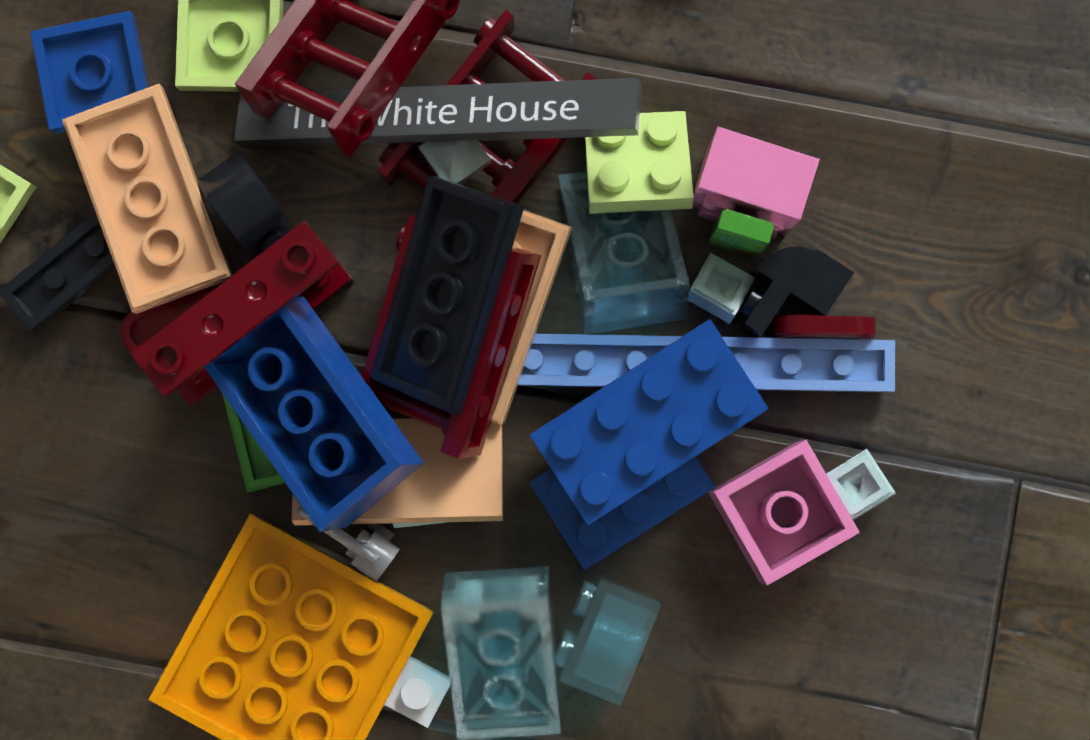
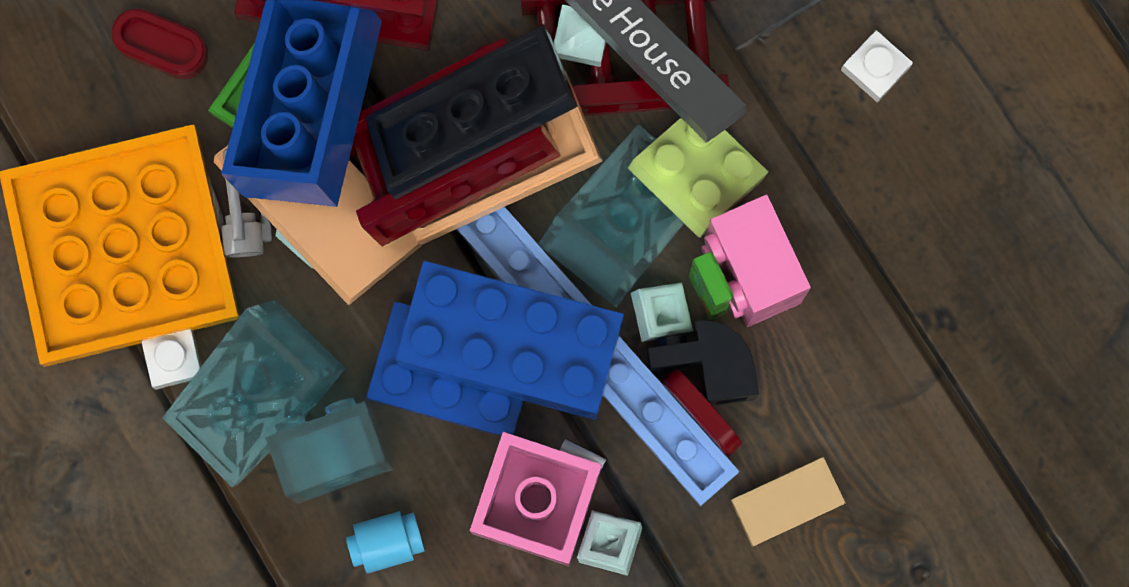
camera: 50 degrees right, 5 degrees down
(158, 483) = (159, 43): none -> dark red tile
(708, 654) = (385, 541): none -> medium azure brick
(772, 444) = (576, 450): none -> white piece
(945, 324) = (787, 502): none -> tan tile

